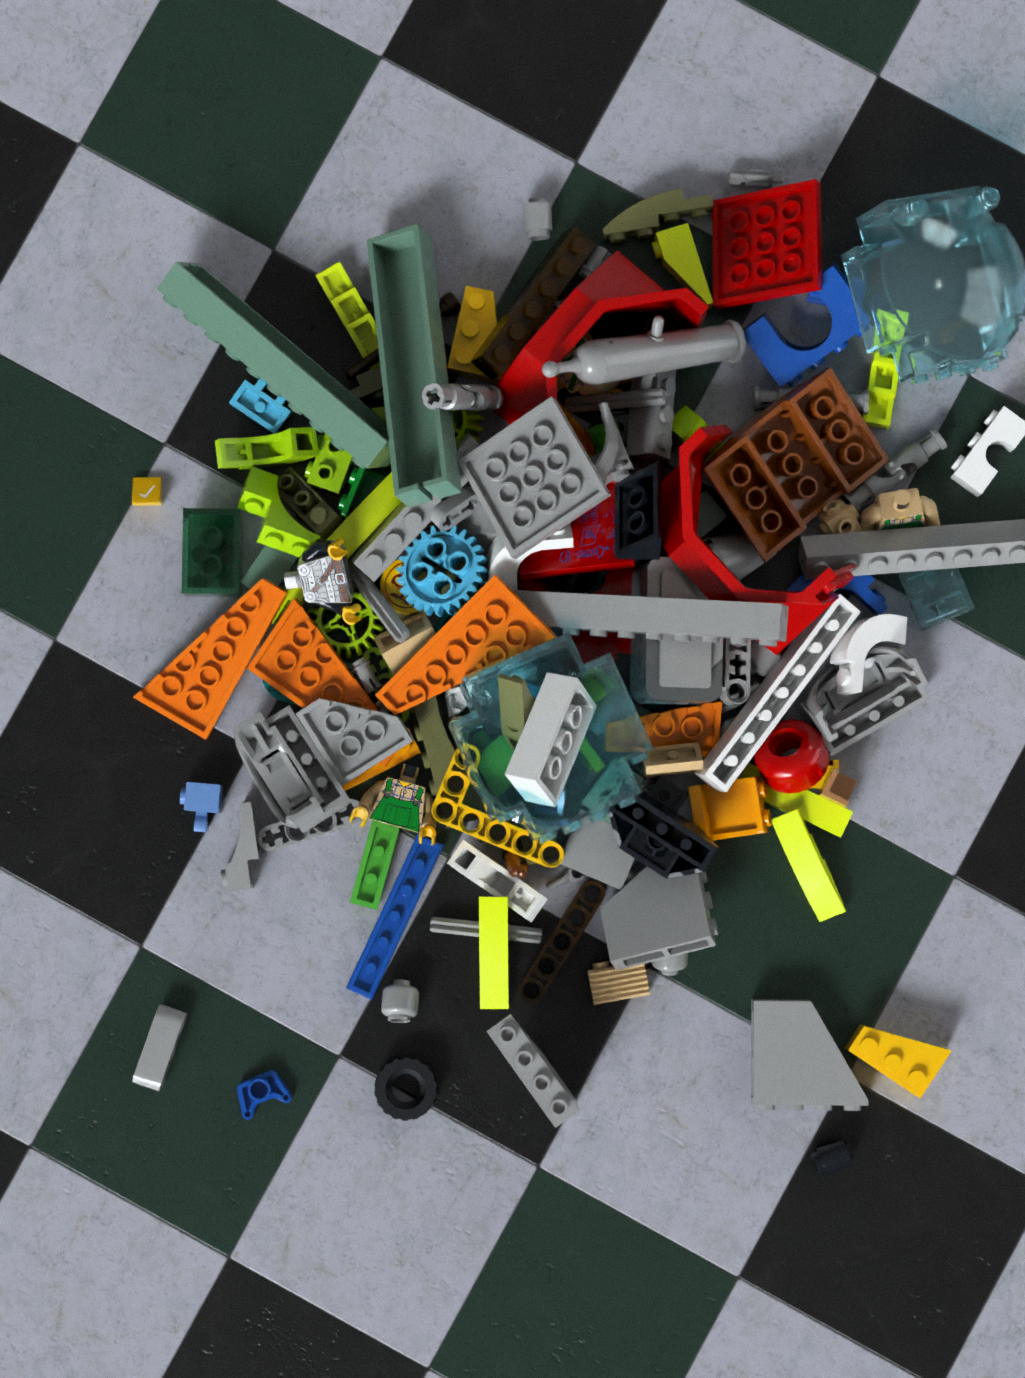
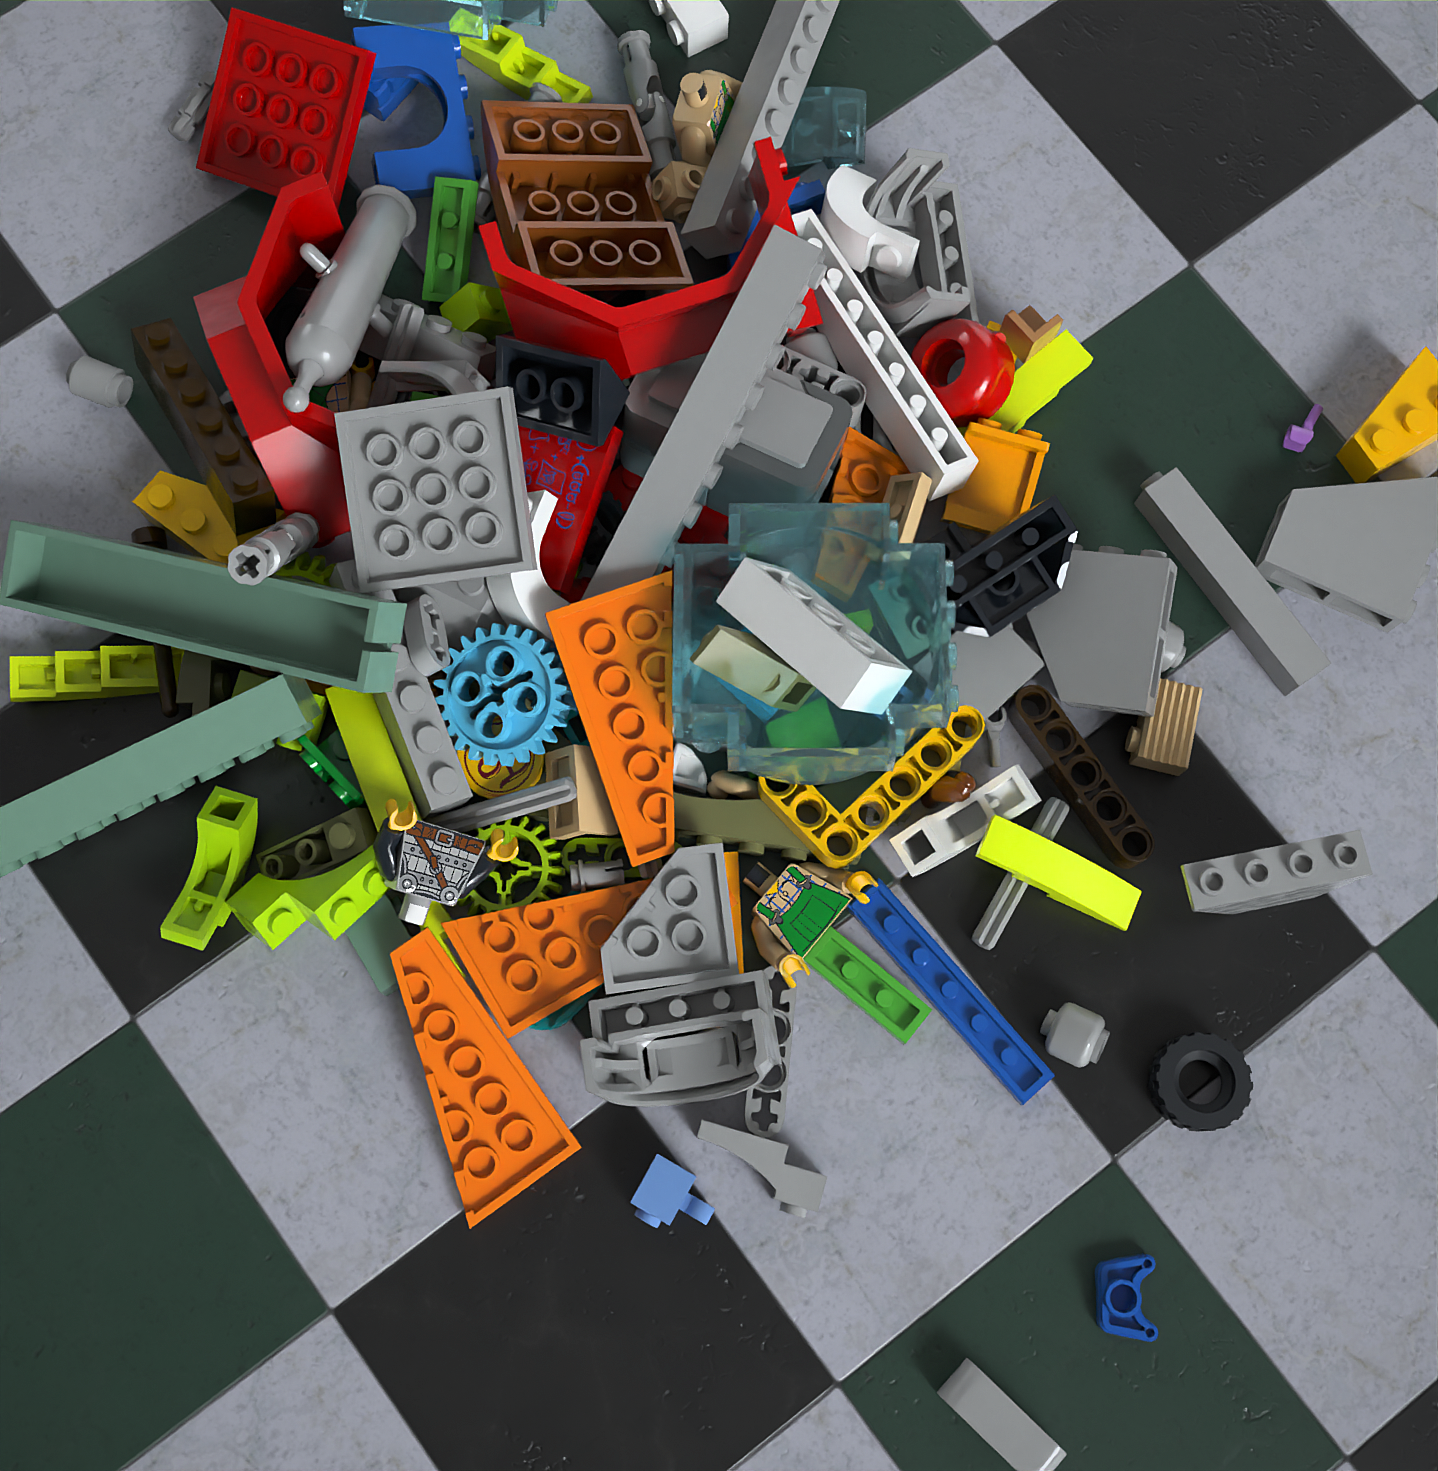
camera: 75 degrees left, 10 degrees down
(147, 491) = (186, 1073): yellow slope -> none
(212, 552) = (318, 1015): clear green brick -> none
(261, 407) = (150, 857): medium azure plate -> none
(330, 467) = (281, 793): lime brick -> none
(596, 259) = (196, 339): light grey pin -> none
(645, 215) = (170, 248): olive slope -> none
(680, 258) = (231, 231): neon yellow slope -> none
(732, 390) = (449, 238): none -> bright green plate
(735, 985) = (1230, 581): none -> light grey brick
(808, 865) = (1108, 418): neon yellow slope -> none
(857, 994) = (1298, 437): none -> medium lavender hand

